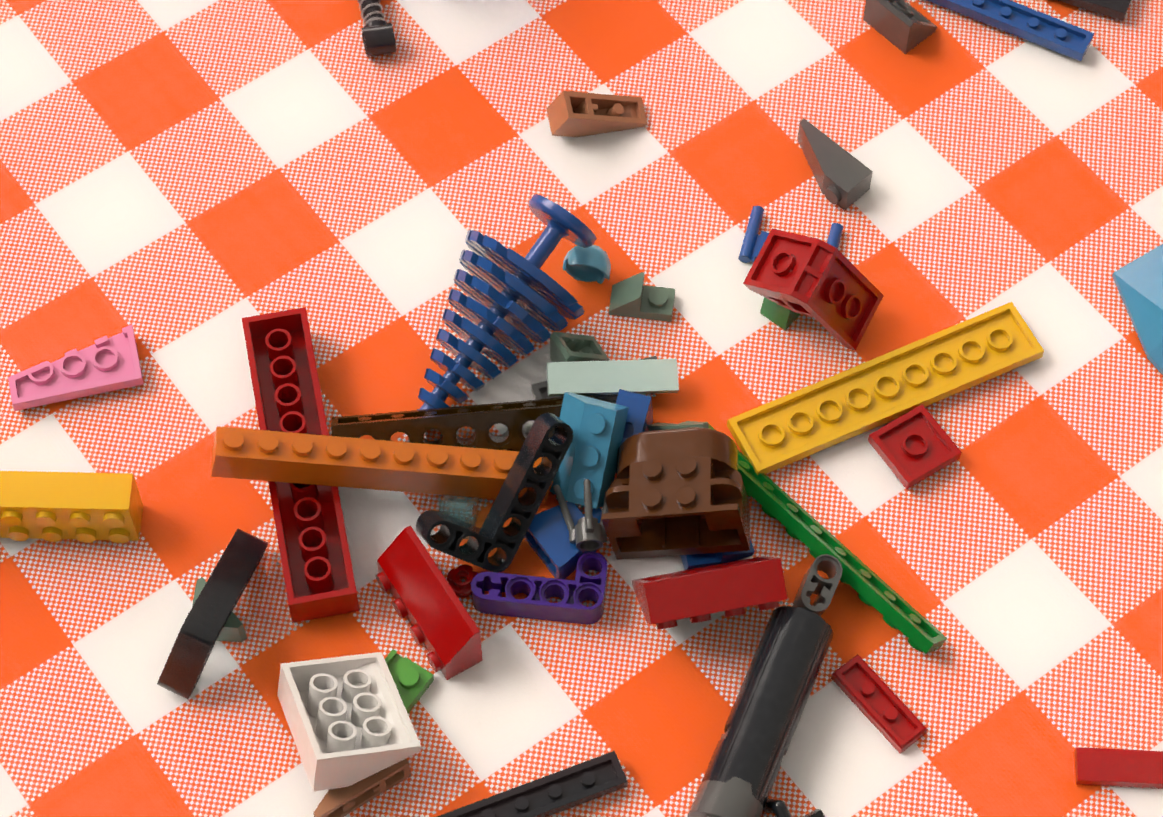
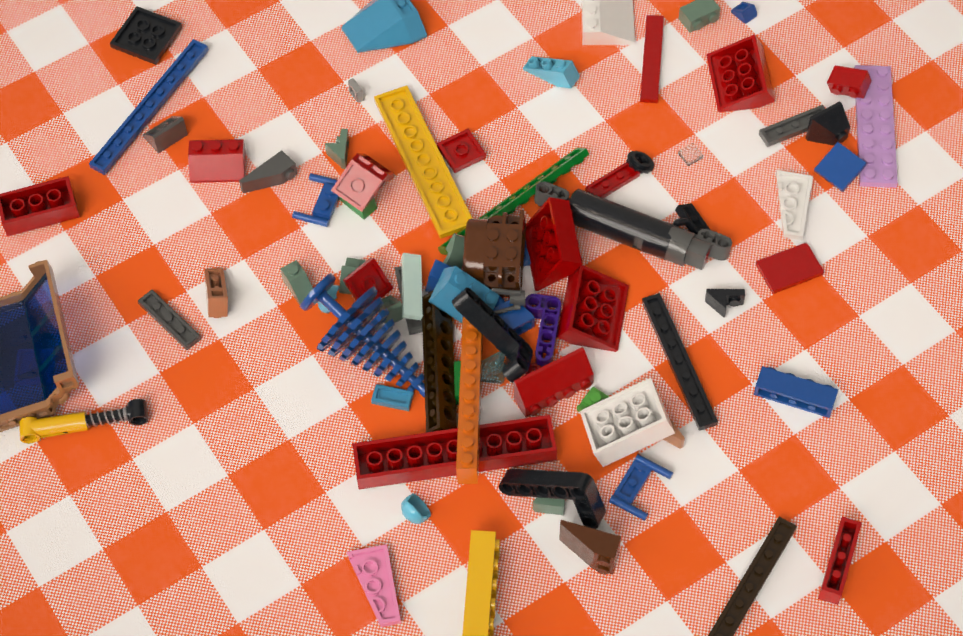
camera: 85 degrees left, 0 degrees up
(112, 669) = (593, 546): none -> reddish brown slope
(200, 413) = (415, 509): none -> medium azure hair
(239, 741) = (633, 483): none -> blue plate
(410, 374) = (392, 397): none -> dark azure tile
(547, 65) = (169, 320): none -> dark grey tile
(587, 672) = (593, 310): none -> red slope
(616, 316) = (366, 277): none -> red plate
(621, 220) = (296, 280): none -> sand green slope
(848, 91) = (216, 160): none -> slope
(887, 264) = (339, 151): none -> sand green slope
(931, 757) = (640, 162): none -> black gear
(1022, 274) = (355, 90): none -> light grey tile
(1116, 589) = (554, 71): none -> medium azure slope

